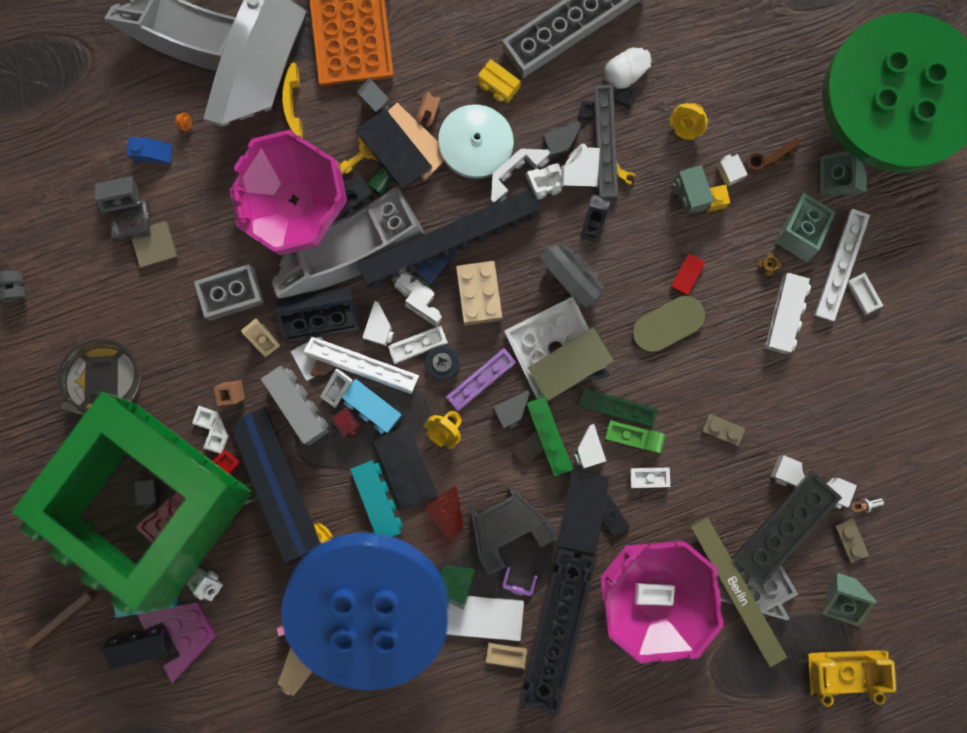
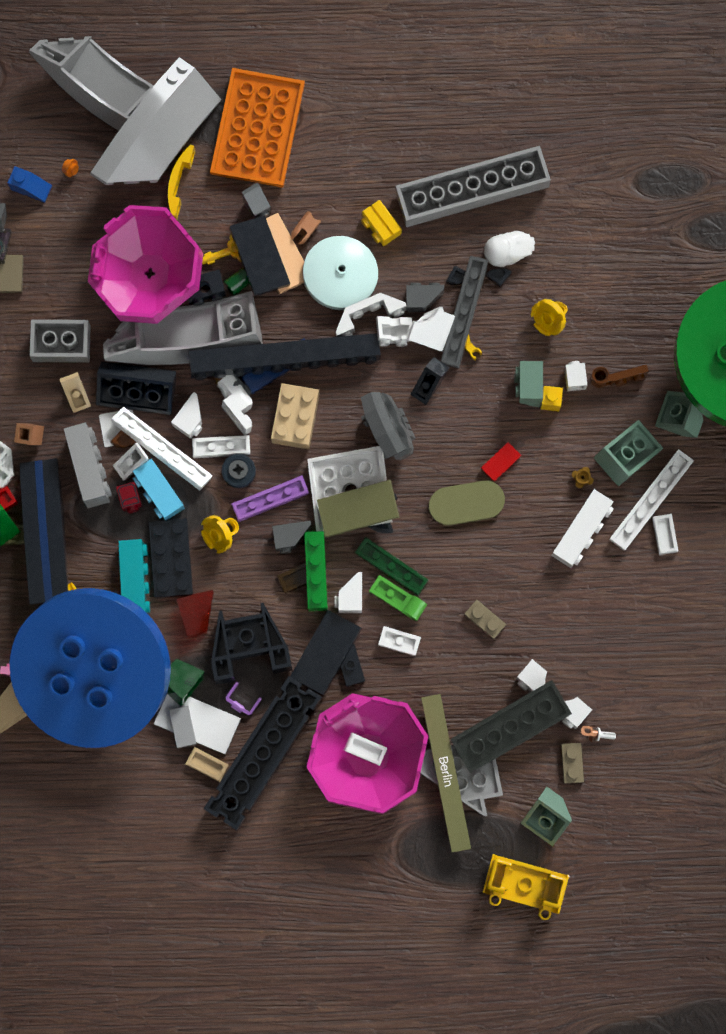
camera: 15 degrees right, 5 degrees down
(471, 628) = (182, 727): none -> light grey tile

